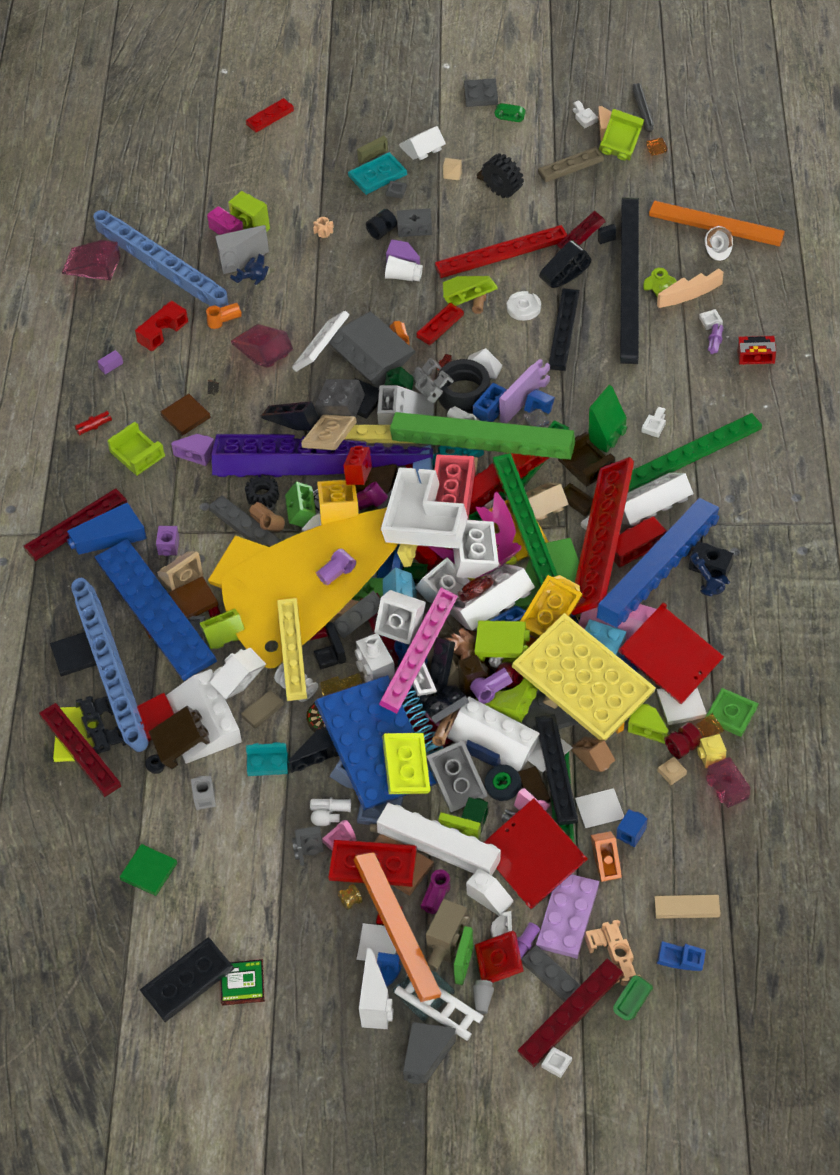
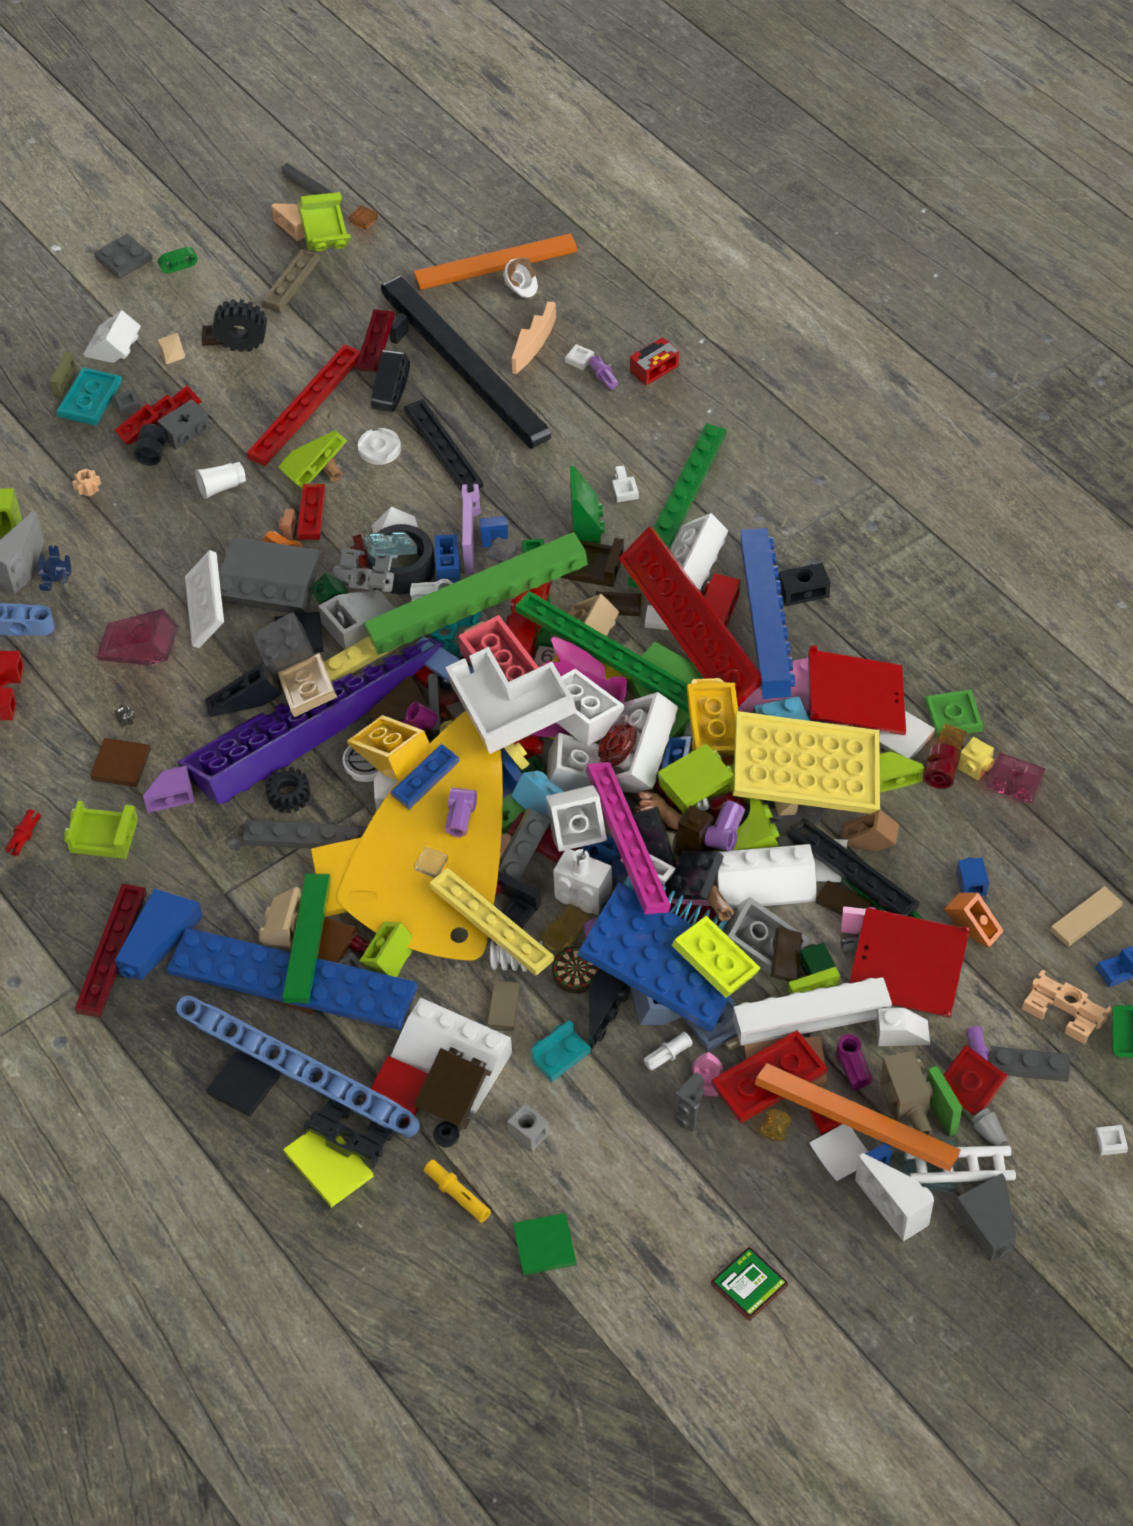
camera: 40 degrees left, 0 degrees up
(80, 750) = (356, 1173): dark red plate -> none
(128, 794) = (449, 1183): none -> yellow pin
(167, 540) = (231, 894): medium lavender brick -> none
(179, 588) = (307, 938): none -> green tile
(186, 979) = (693, 1321): black tile -> none
(218, 315) = (58, 637): orange piece -> none
(237, 672) = (456, 982): white brick -> none
(266, 518) = (319, 812): medium nougat piece -> none
(293, 588) = (431, 862): none -> clear tile
(300, 504) = (346, 776): bright green brick -> none
(324, 817) = (673, 1068): white cylinder -> none
(337, 532) = (425, 776): none -> blue tile
(357, 465) = (380, 697): red brick -> none
(398, 203) = (130, 428): none -> red slope
(403, 251) = (202, 459): medium lavender slope -> none
(417, 323) = (288, 523): none -> nougat plate
(451, 370) = (396, 544): none -> clear light blue plate
(459, 794) = (786, 954): none -> dark brown tile
(483, 753) = (776, 899): dark blue piece -> none
(501, 924) = (941, 1052): white tile -> none
(503, 773) = (823, 923): black bush -> none
(568, 916) = (992, 1000): lavender plate -> none
(570, 1012) = (1083, 1085): dark red plate -> none
(584, 116) = (259, 224): white plate -> none
(599, 808) = (922, 880): white sticker -> none
(658, 283) = (499, 350): lime plate -> none
(672, 771) = (953, 802): tan plate -> none
(714, 585) = (827, 604): dark blue piece -> none

